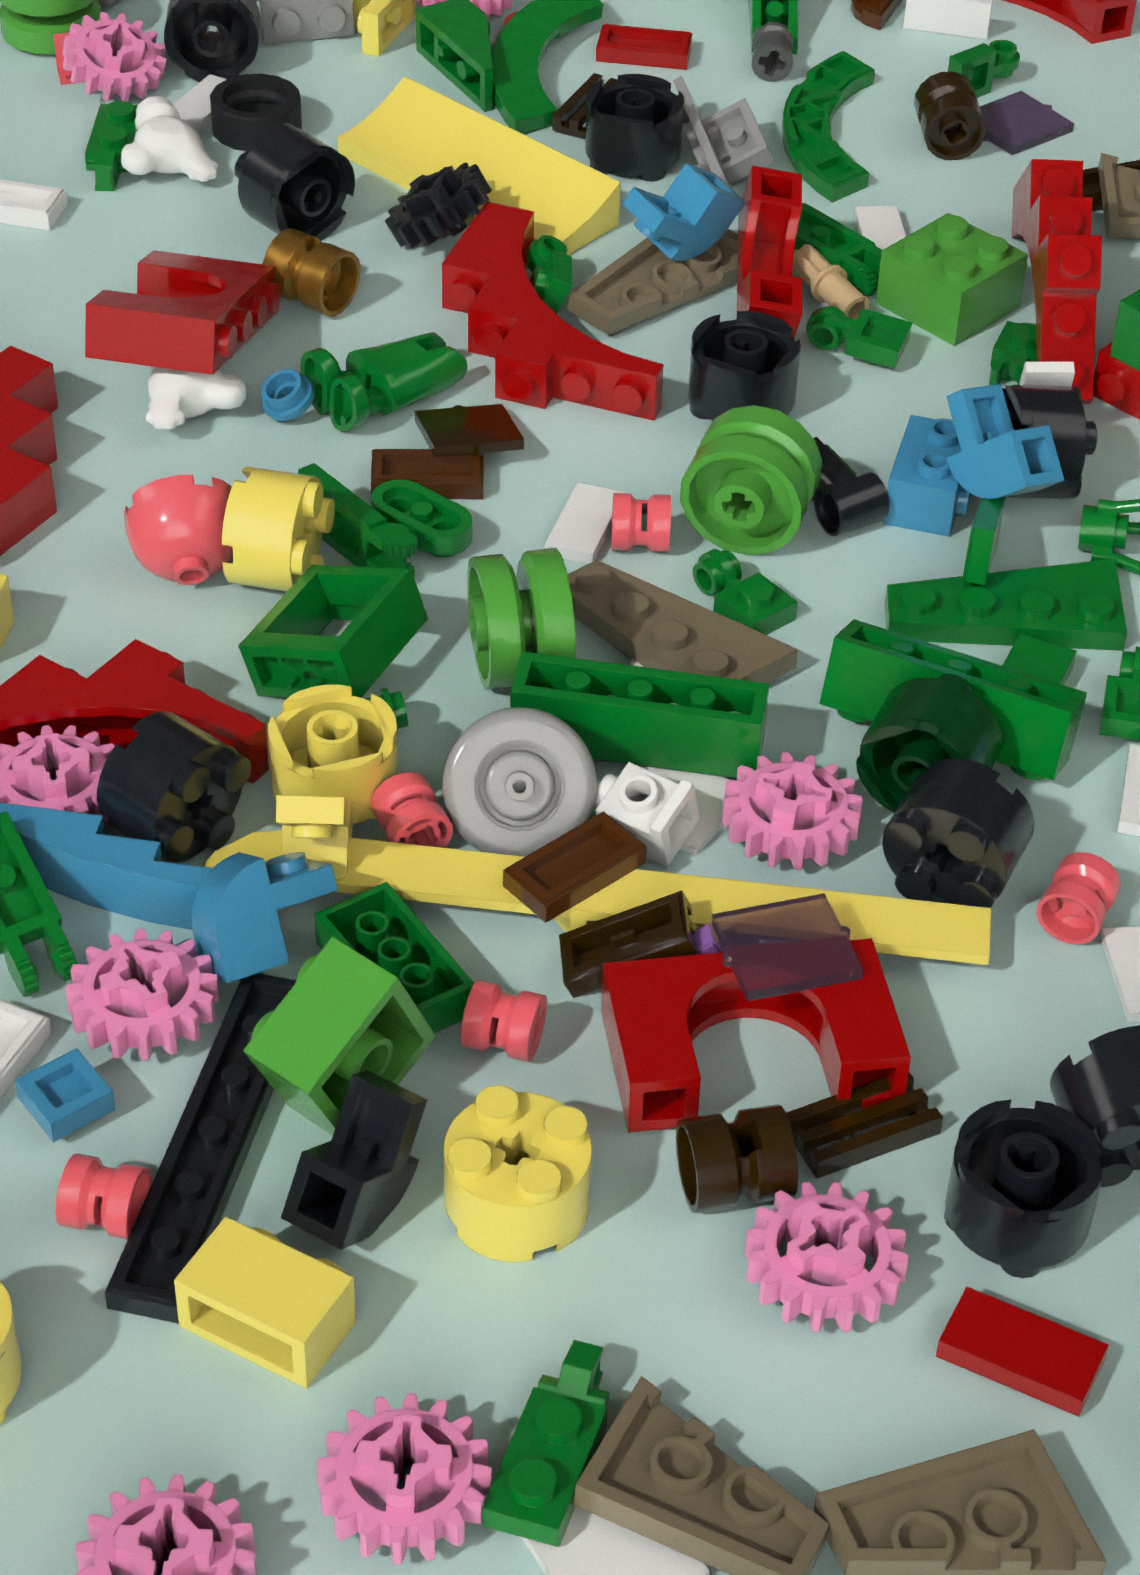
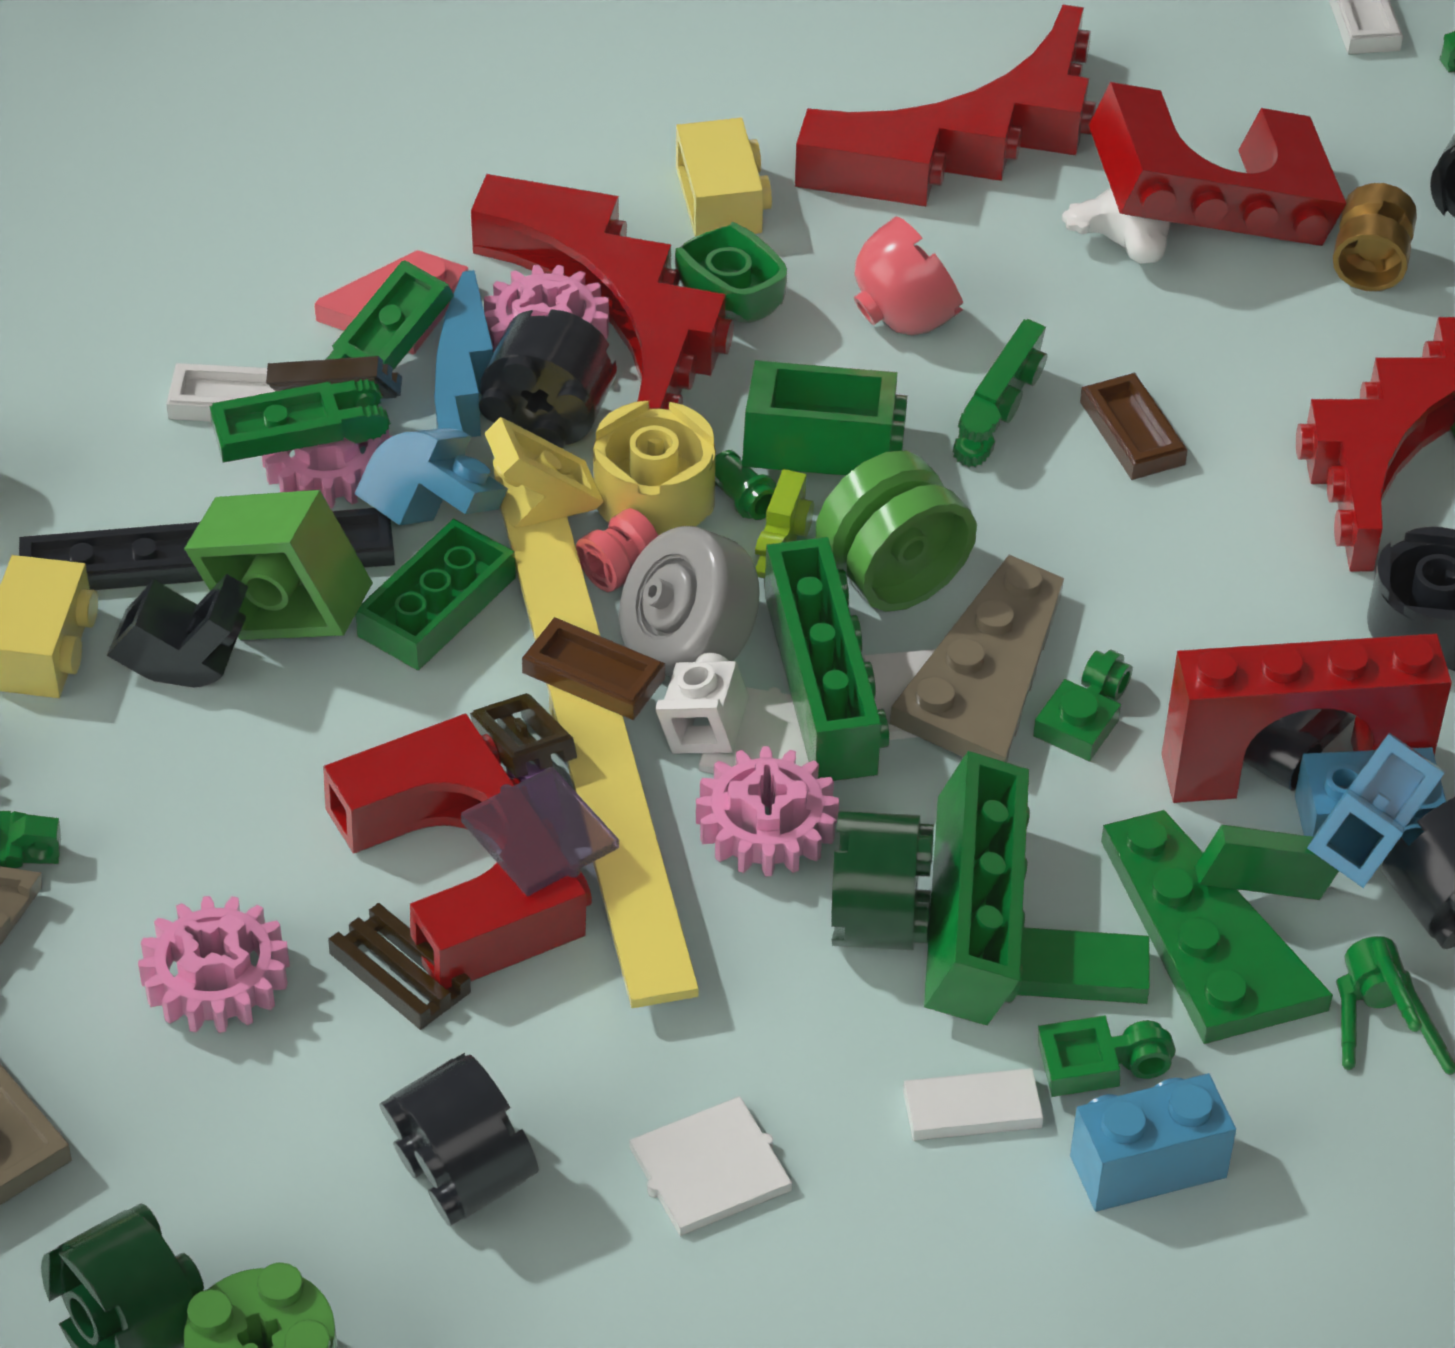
camera: 70 degrees right, 5 degrees up
(65, 1094) = (195, 449): dark azure plate -> none
(69, 945) = (304, 373): none -> dark brown tile
(90, 628) = (736, 265): none -> green piece
(101, 1195) = (105, 496): coral wheel -> none
(131, 982) = (298, 419): none -> green hinge
(275, 527) = (930, 332): light yellow brick -> none
(286, 395) = (1175, 287): dark azure plate -> none
(381, 378) = (1248, 346): green piece -> none
(435, 698) = (786, 515): none -> lime plate
(439, 523) = (1049, 436): green plate -> none
(469, 430) = (1213, 430): dark brown piece -> none
(503, 1020) = (397, 681): coral wheel -> none
(517, 1174) = (217, 733): light yellow brick -> none
(583, 523) = (1134, 560): white piece -> none
(628, 517) = (1138, 593): coral wheel -> none
(736, 1158) = (293, 872): dark brown wheel -> none
(751, 480) = (1205, 620): bright green wheel -> none
(857, 461) = (1234, 692): none -> red arch
(957, 835) = (758, 928): black brick -> none
(1022, 1351) = (173, 1134): red tile -> none
(1023, 1185) = (330, 1073): black brick -> none
(1078, 898) = (753, 1058): coral wheel -> none

